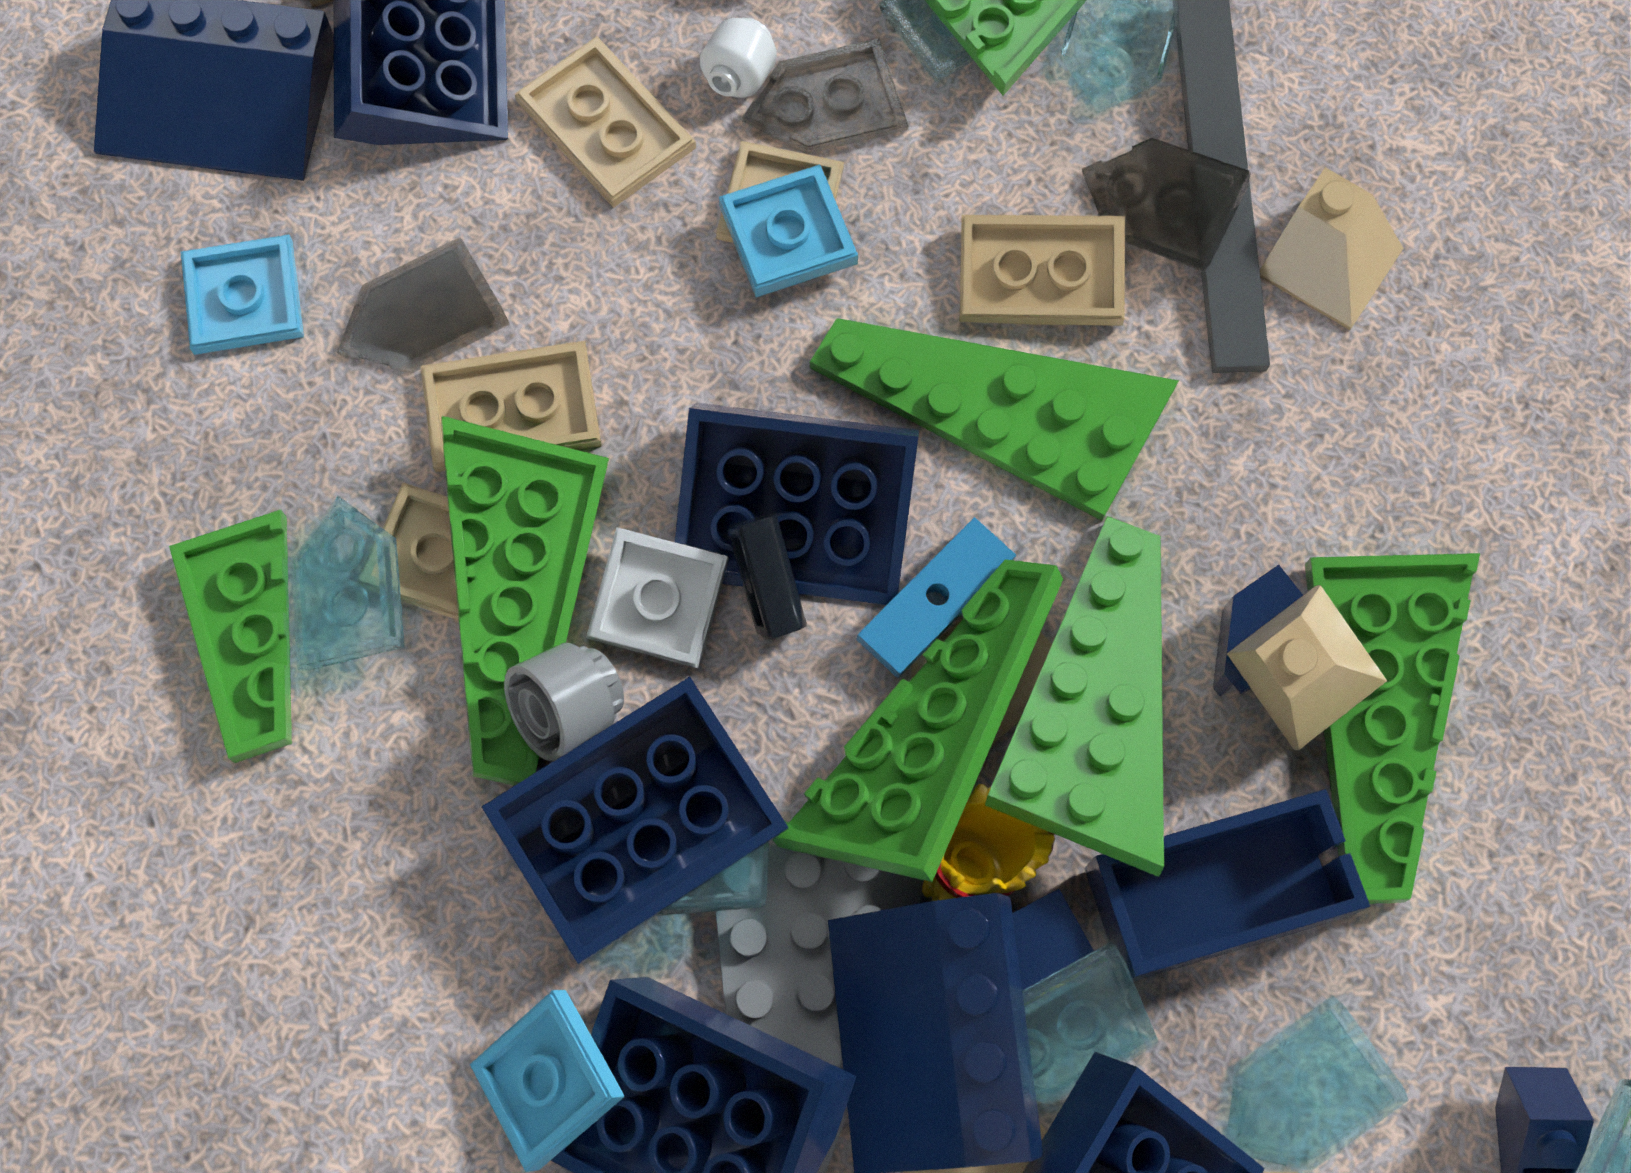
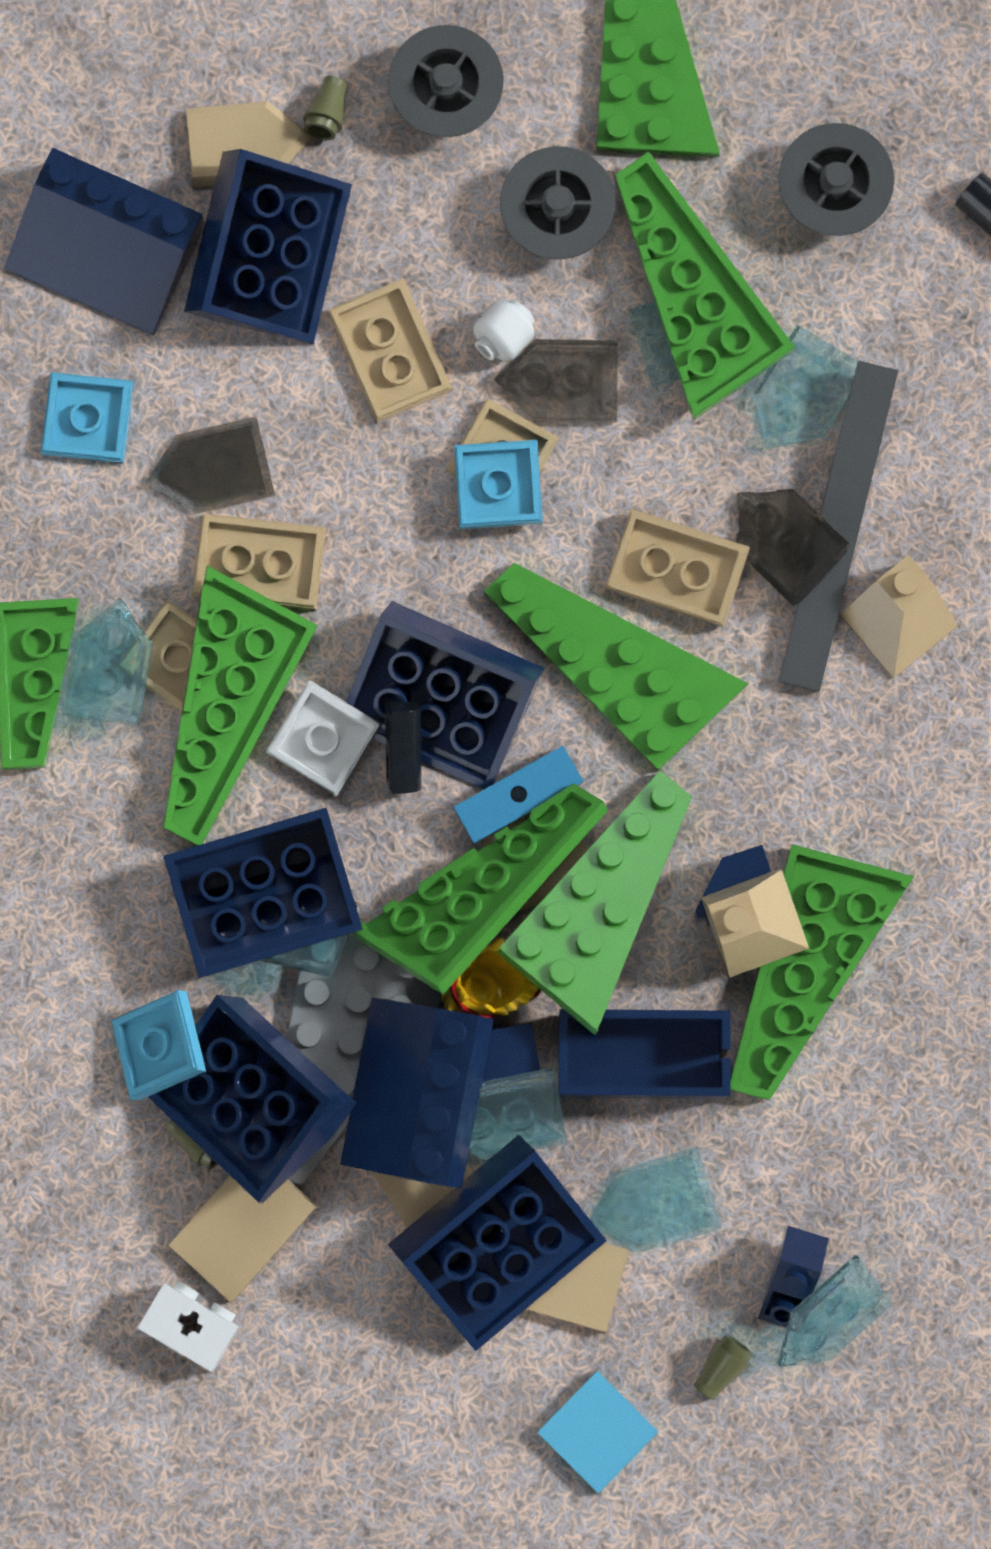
camera: 20 degrees right, 10 degrees up
(563, 698) = (237, 796): light grey piece -> none

